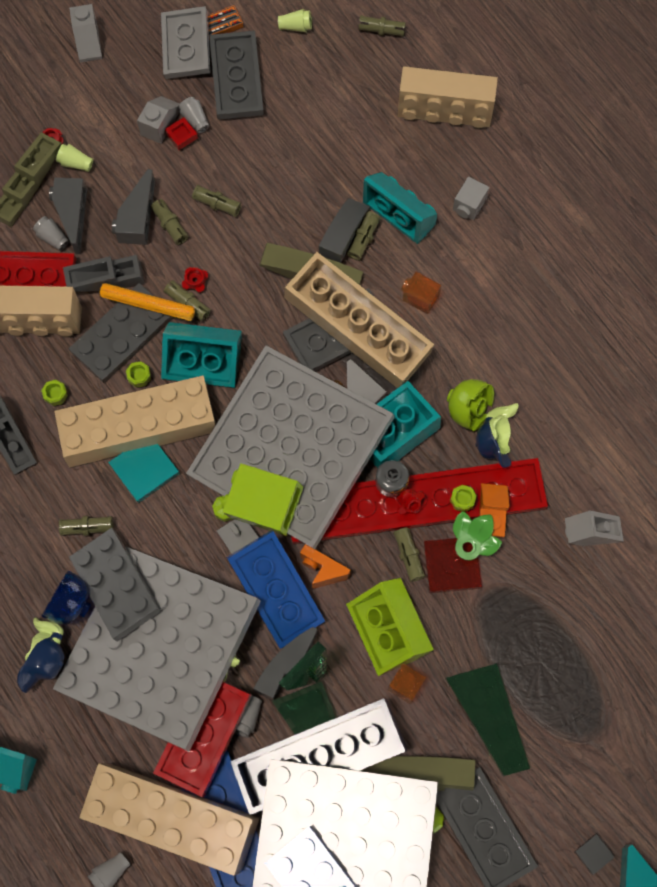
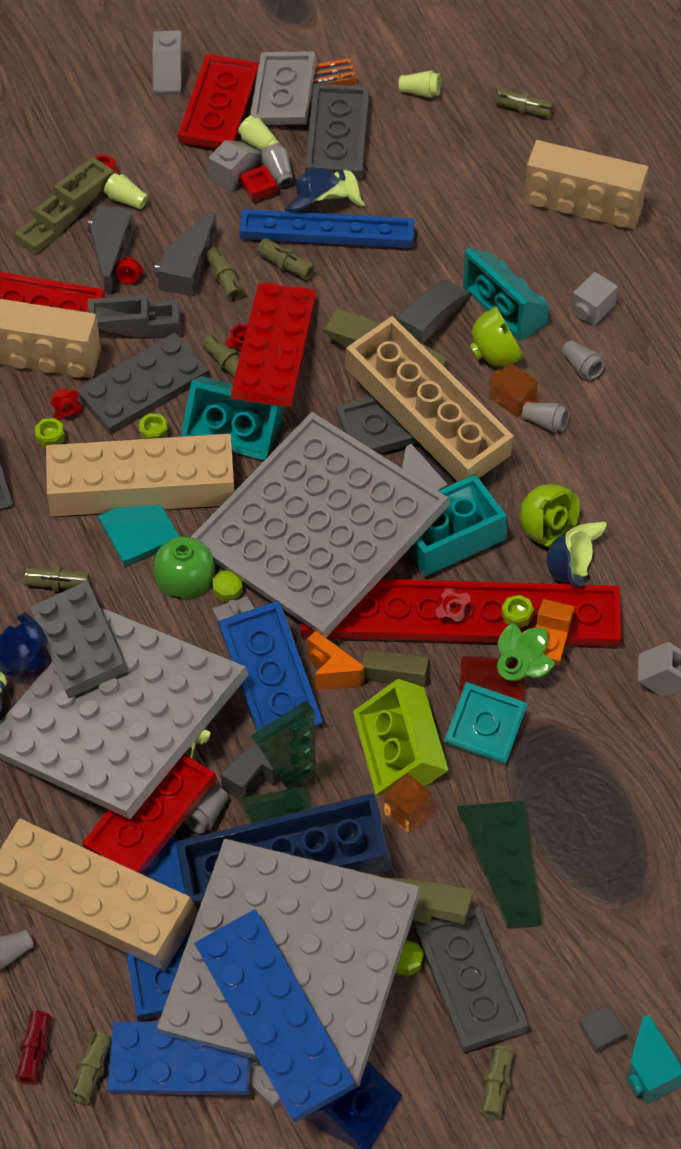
camera: 10 degrees right, 15 degrees down
(48, 231) = (80, 264): light grey cone -> none
(62, 364) = (63, 398): none -> red plate
(90, 231) = (126, 275): none -> red plate
(134, 62) = (218, 101): none -> red plate
(147, 301) = (180, 350): light orange axle -> none
(172, 88) = (256, 133): none -> yellowish green cone
(190, 508) = (184, 568): none -> bright green cylinder
(222, 286) = (274, 344): none -> red plate
(233, 129) = (321, 184): none -> dark blue hair
(244, 167) = (327, 228): none -> blue plate
(262, 499) = (273, 569): lime brick -> none
(364, 236) = (466, 309): olive pin -> none
(372, 559) = (392, 666): none -> olive slope
(392, 486) = (434, 573): dark grey head -> none
(399, 250) = (494, 340): none -> lime cylinder
(409, 554) = (440, 668): olive pin -> none
(453, 311) = (547, 415): none -> light grey cone
(454, 600) = (485, 723): none -> teal tile
(473, 256) = (584, 360): none -> light grey cone

